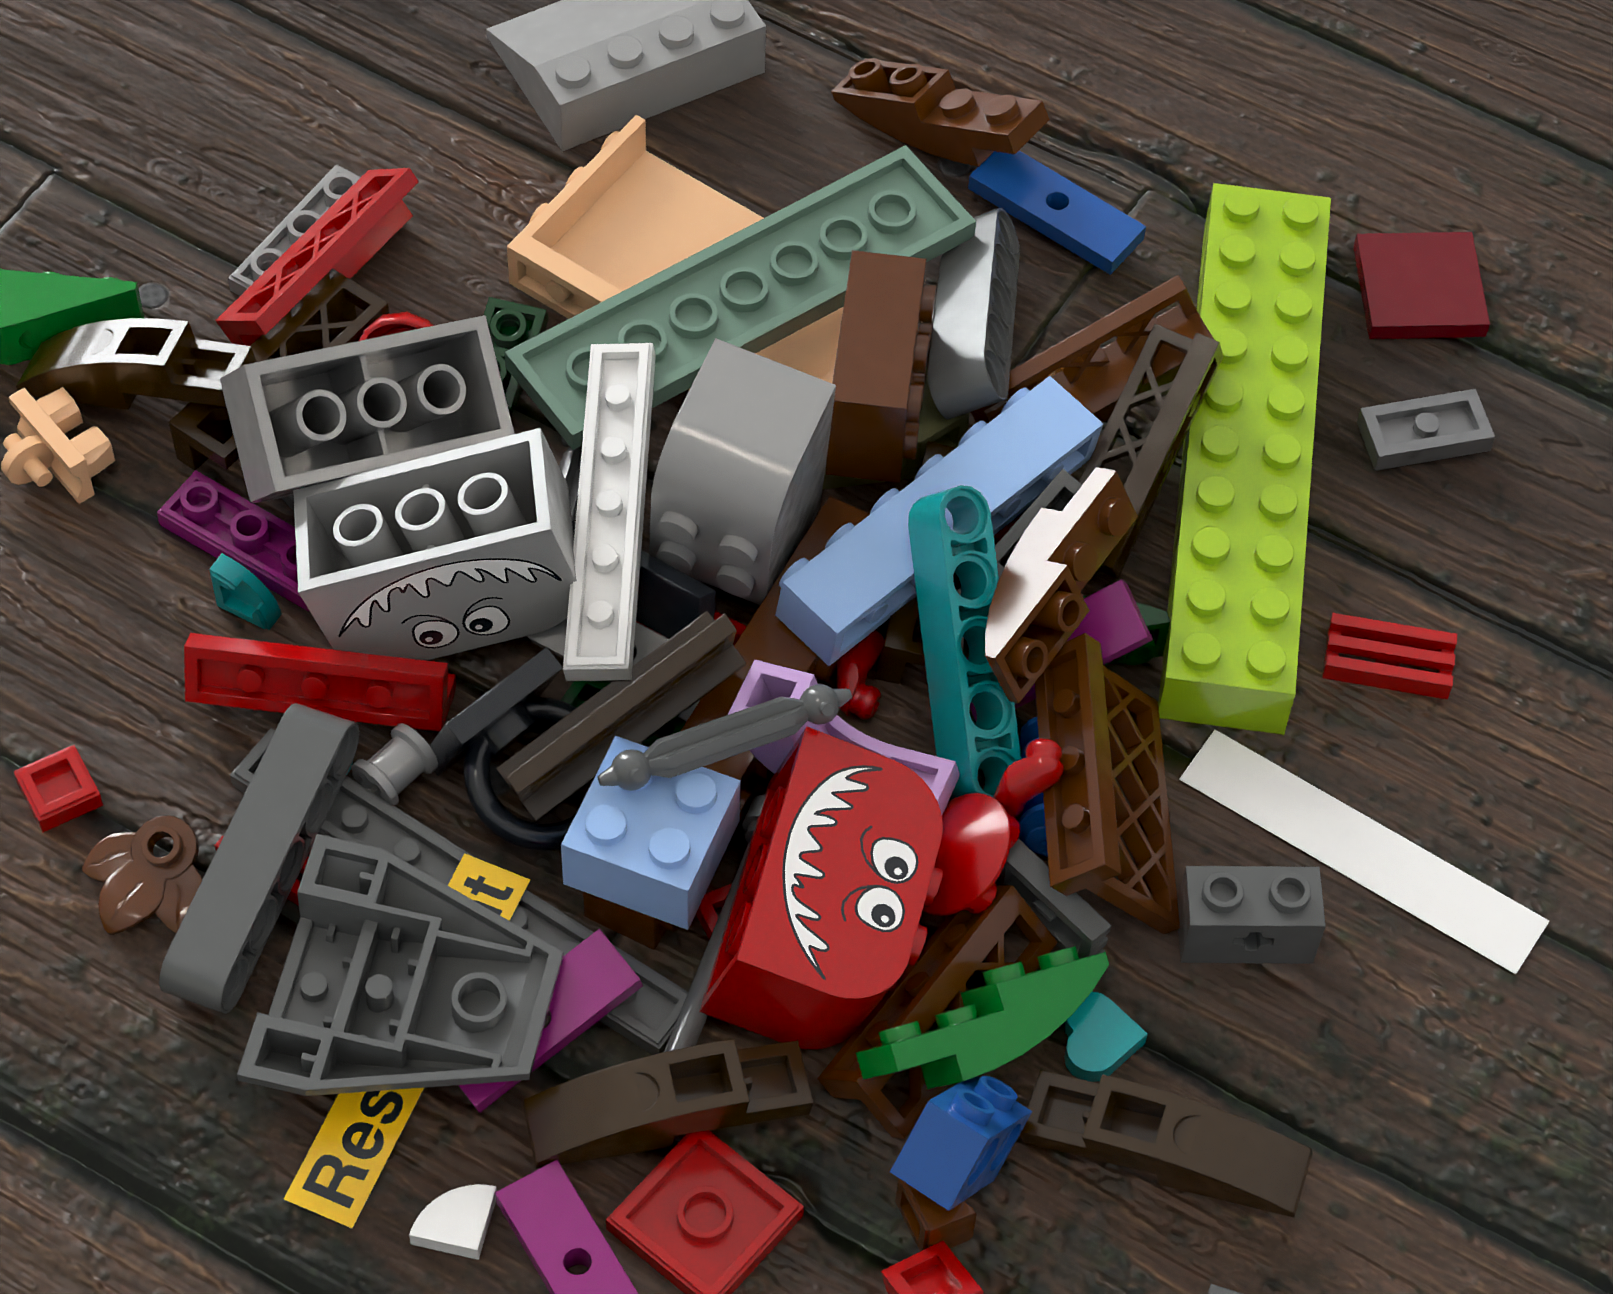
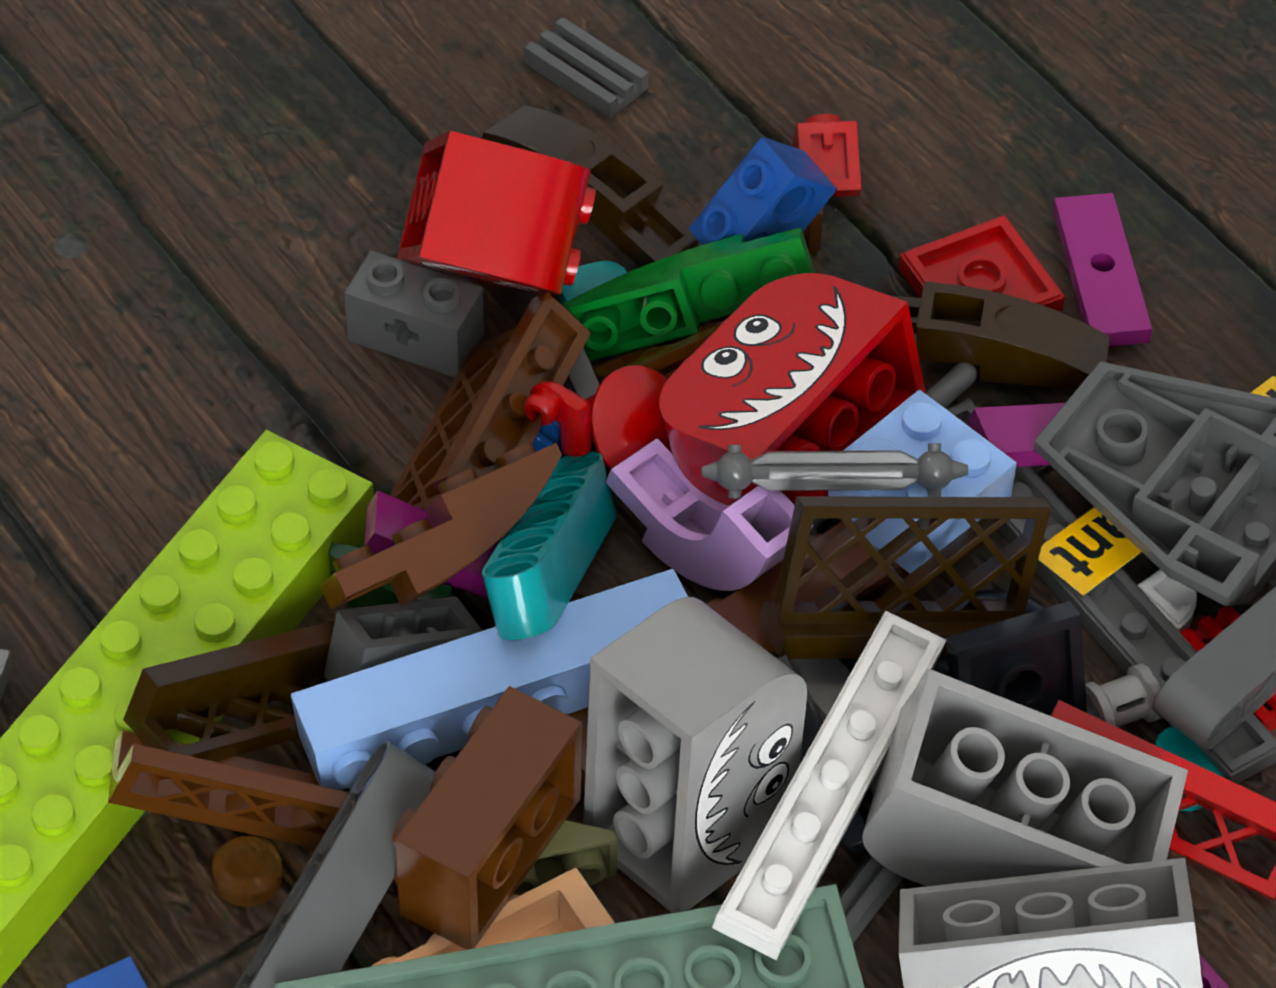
camera: 155 degrees left, 5 degrees down
(243, 593) = (1224, 931): teal tile -> none
(456, 1221) = (1186, 340): white tile -> none
(1209, 935) = (496, 214): none -> red brick
(1365, 851) = (268, 357): white sticker -> none
(1389, 646) = (138, 487): red tile -> none

